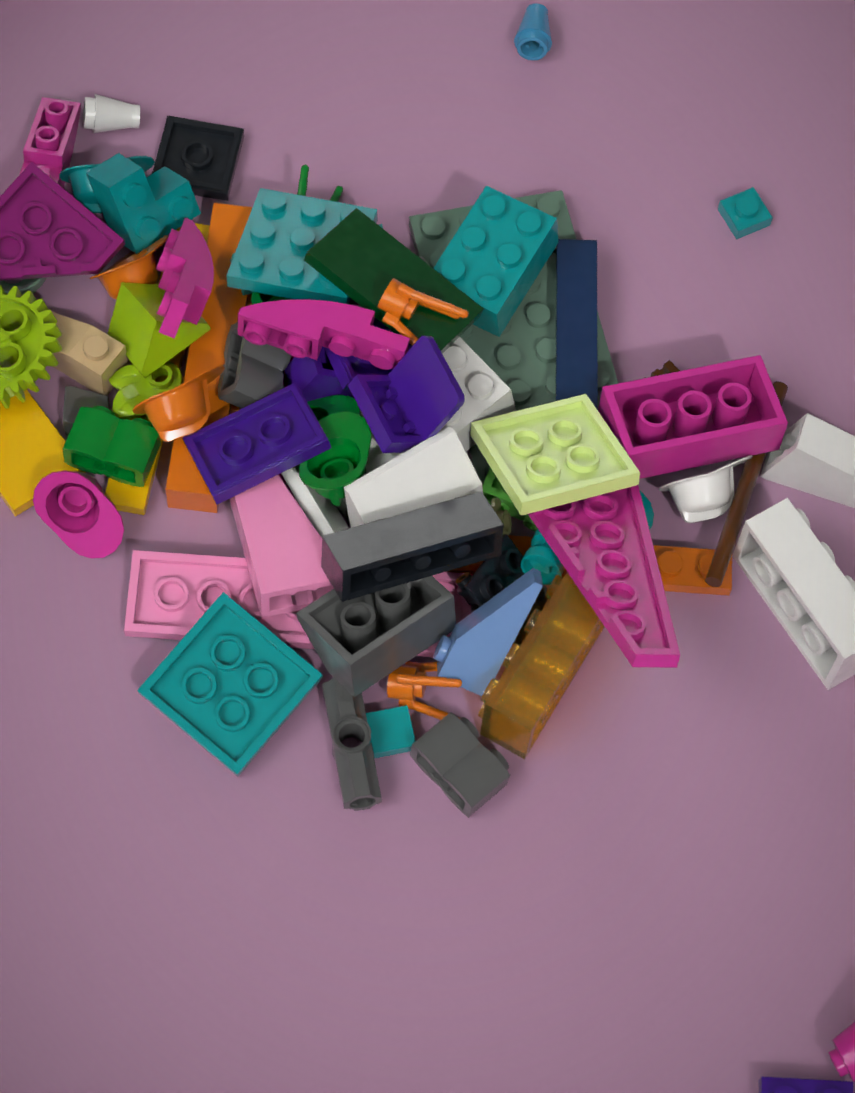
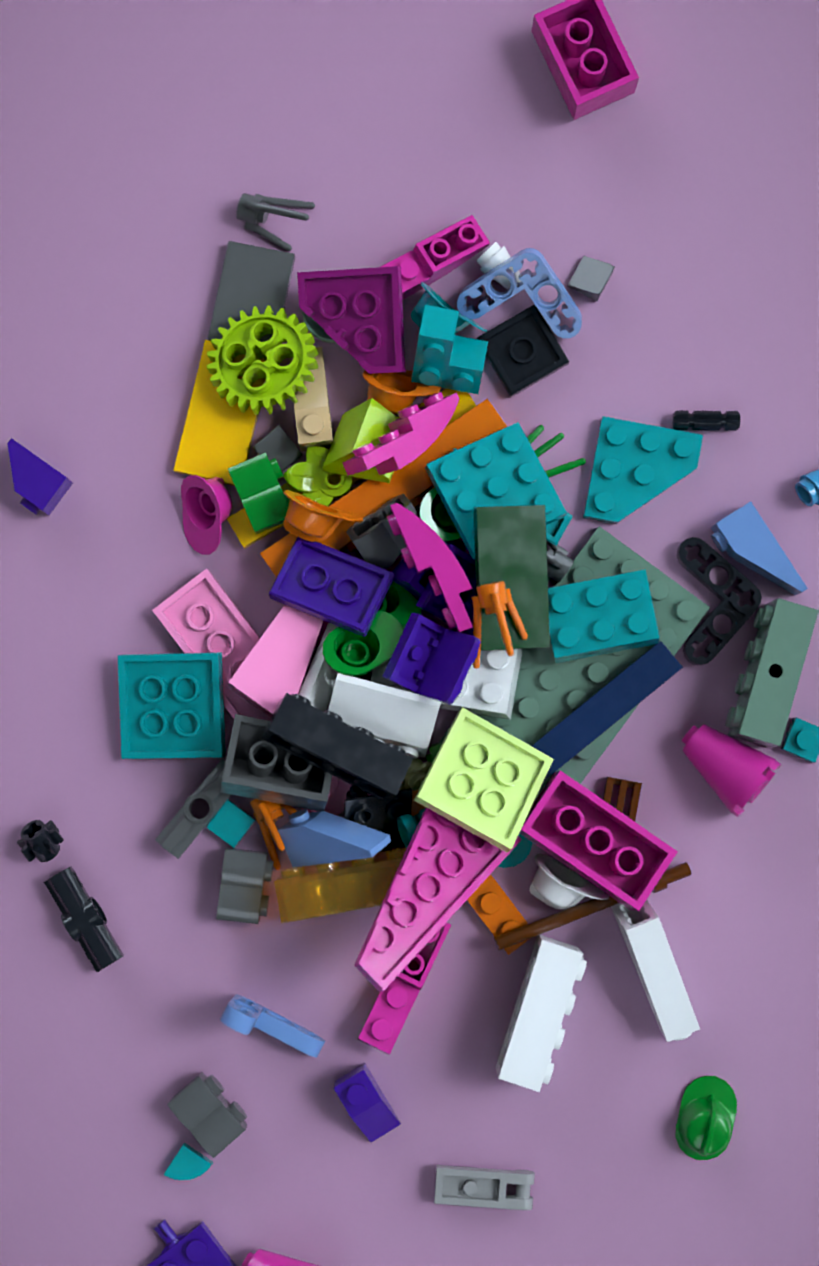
camera: 60 degrees right, 20 degrees up
(150, 95) = (531, 283): none -> medium blue beam
(189, 58) = (591, 277): none -> slope
(245, 914) = (40, 841): none -> black gear
(359, 939) = (84, 919): none -> black piece
(383, 153) = (635, 466): none -> teal plate
(397, 72) = (706, 420): none -> black axle
(543, 116) = (753, 545): none -> medium blue slope
(572, 176) = (728, 605): none -> black beam
(594, 845) = (244, 1014): none -> medium blue beam
(656, 978) = (208, 1114): none -> dark grey brick
(666, 180) = (771, 673): none -> sand green brick
(689, 715) = (396, 1001): none -> dark pink slope
(689, 1045) = (188, 1164): none -> teal tile
(717, 276) = (729, 766): none -> dark pink cone
(767, 822) = (366, 1103): none -> dark purple slope

